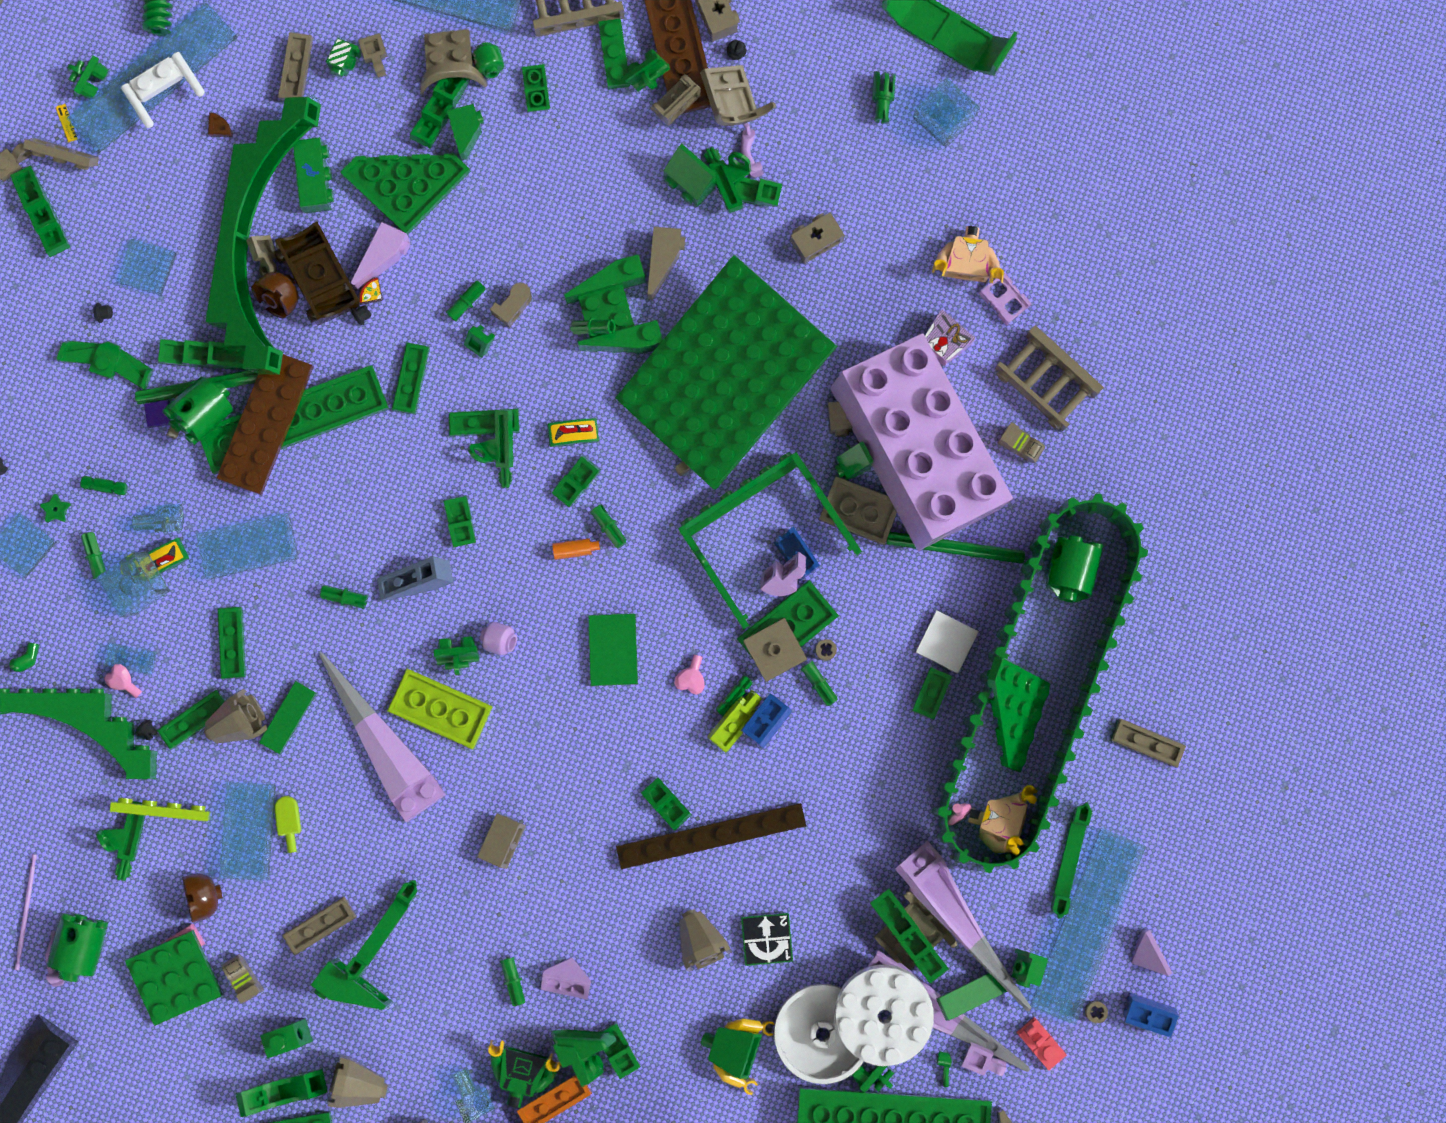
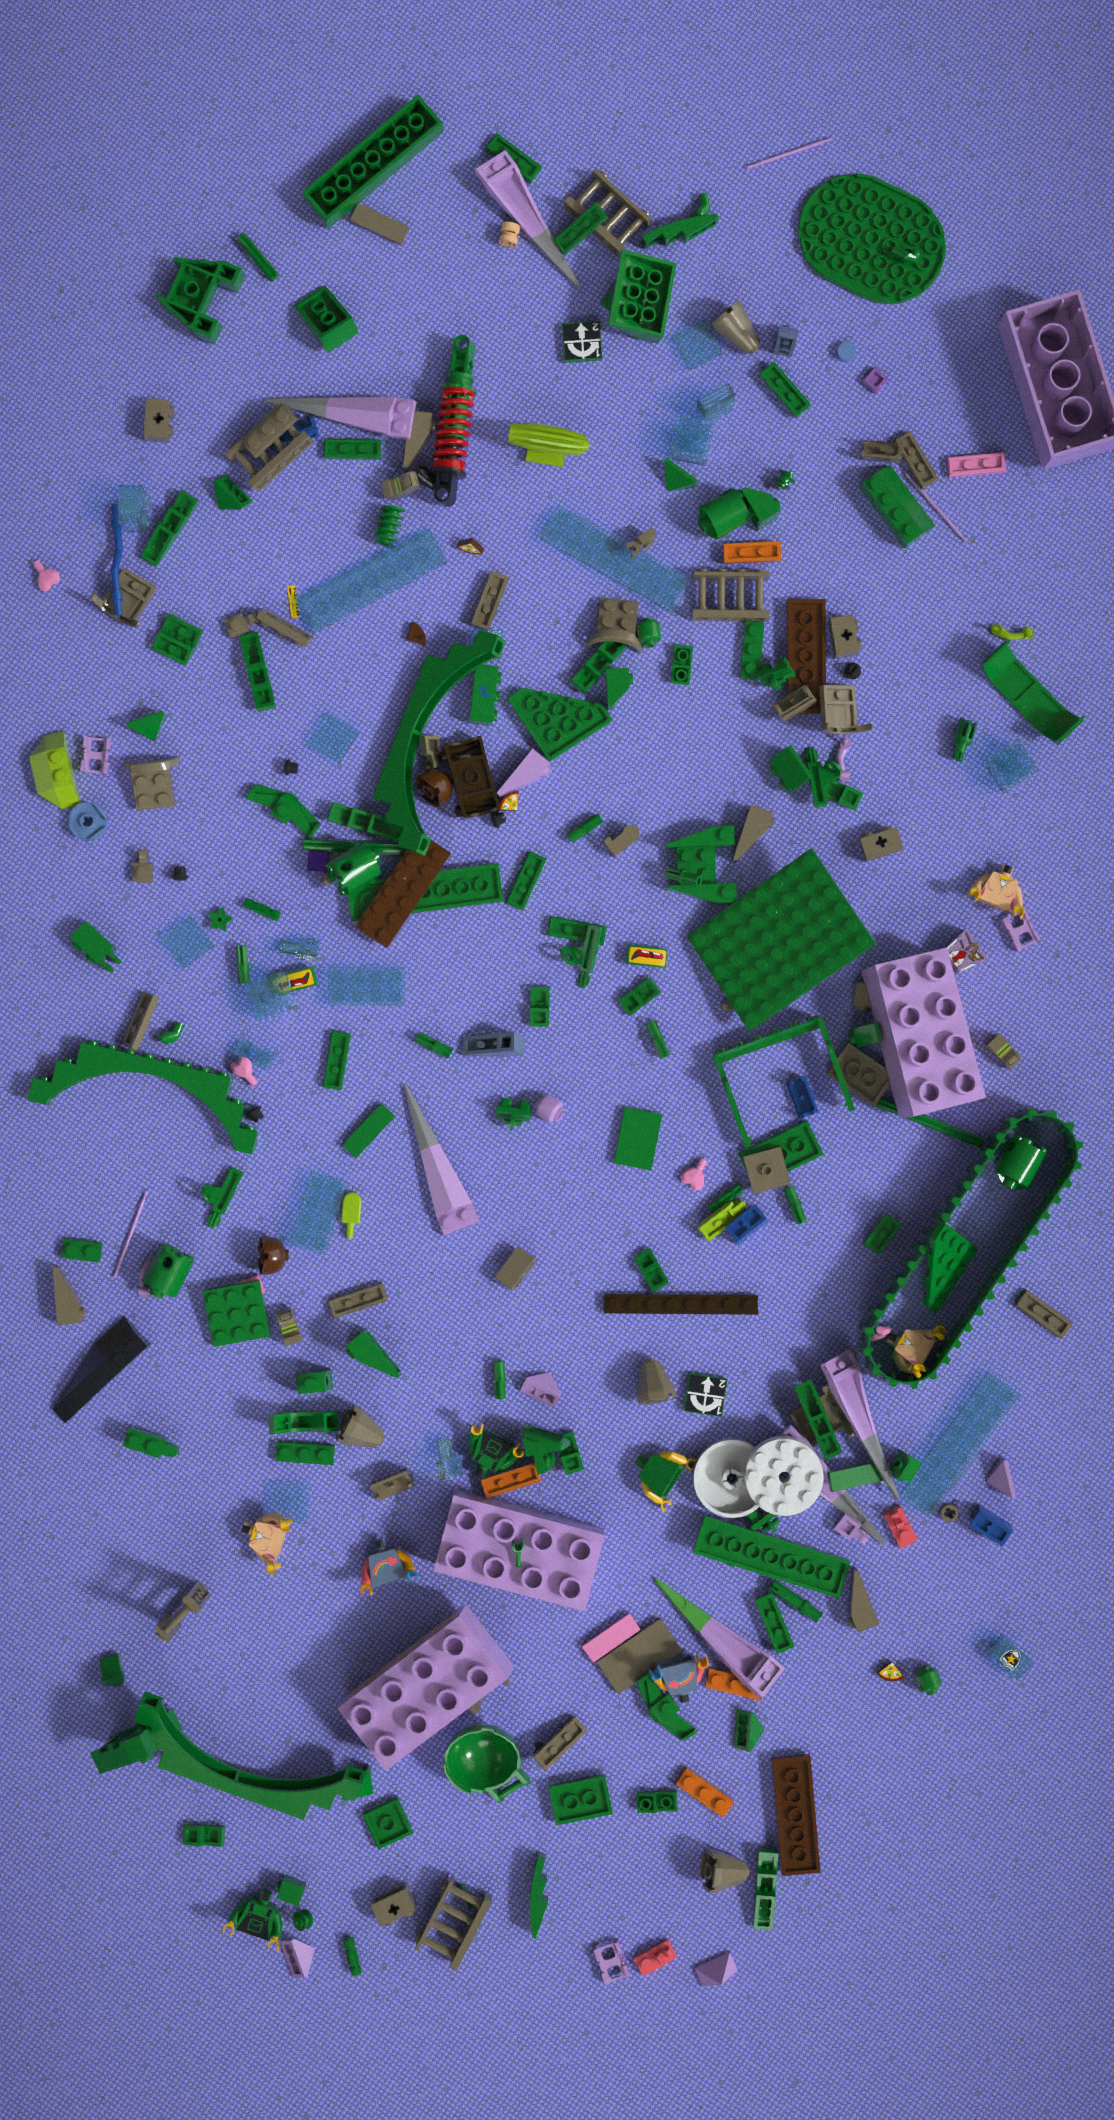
camera: 10 degrees right, 5 degrees up
(93, 69) = (324, 563): green hips -> none
(150, 808) = (262, 1183): lime plate -> none
(157, 80) = (376, 586): white plate -> none
(191, 720) = (294, 1114): green tile -> none
(236, 719) = (328, 1124): dark tan cone -> none
(259, 11) = (470, 546): none -> tile
(342, 58) = (530, 602): green brick -> none
(373, 51) = (556, 601): dark tan plate -> none
(384, 928) = (407, 1316): green piece -> none
(440, 708) = (490, 1152): lime tile -> none
(478, 341) = (588, 864): green tile -> none
(574, 548) = (626, 1050): orange cylinder -> none
(782, 579) = (786, 1115): lavender brick -> none
(833, 650) = (812, 1180): dark tan bush -> none
(944, 1059) = (820, 1520): green hand -> none
(947, 642) = (904, 1196): white tile -> none
(1053, 356) = (1047, 987): dark tan fence -> none
(1080, 820) = (944, 1417): green piece -> none

